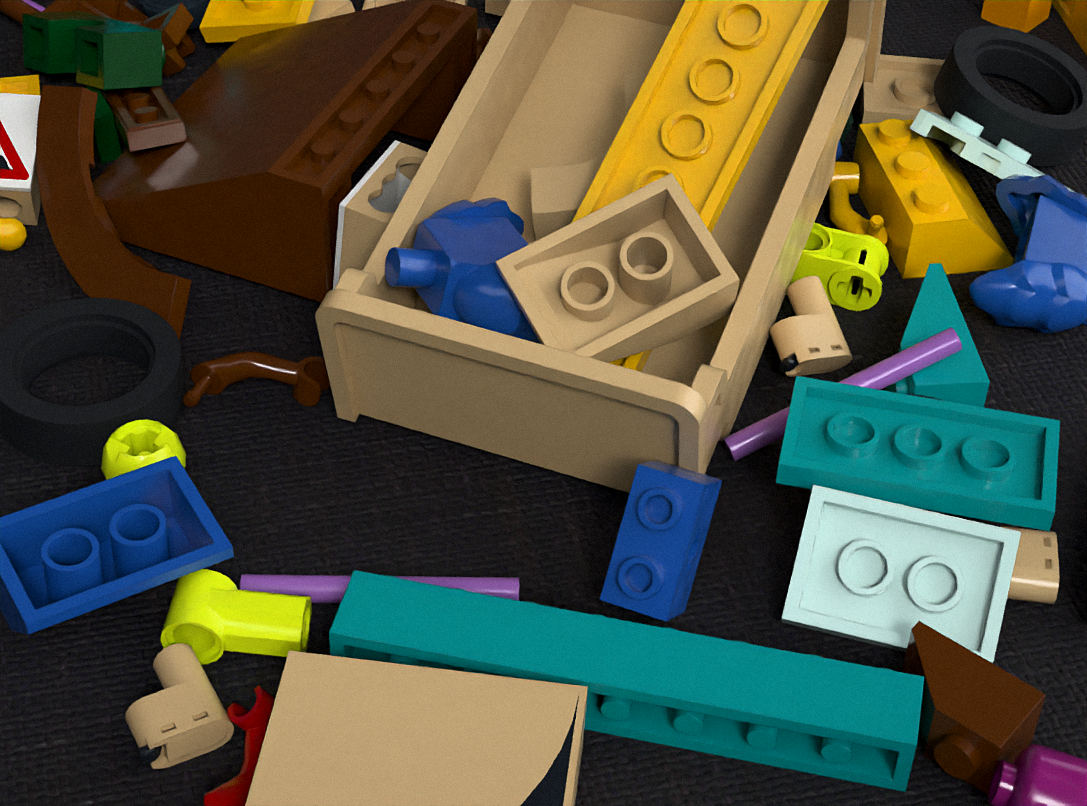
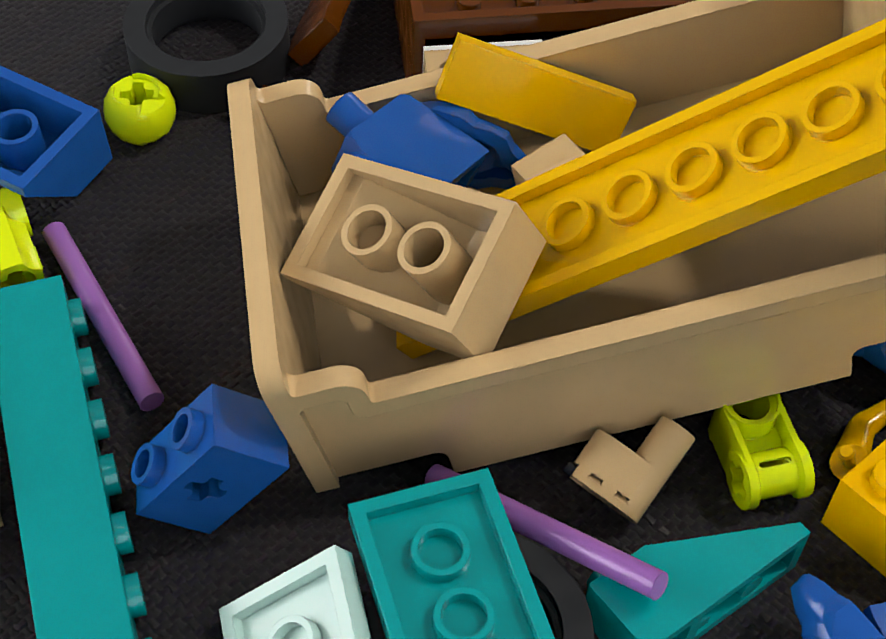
camera: 60 degrees right, 10 degrees up
(479, 159) = (533, 94): none -> yellow tile

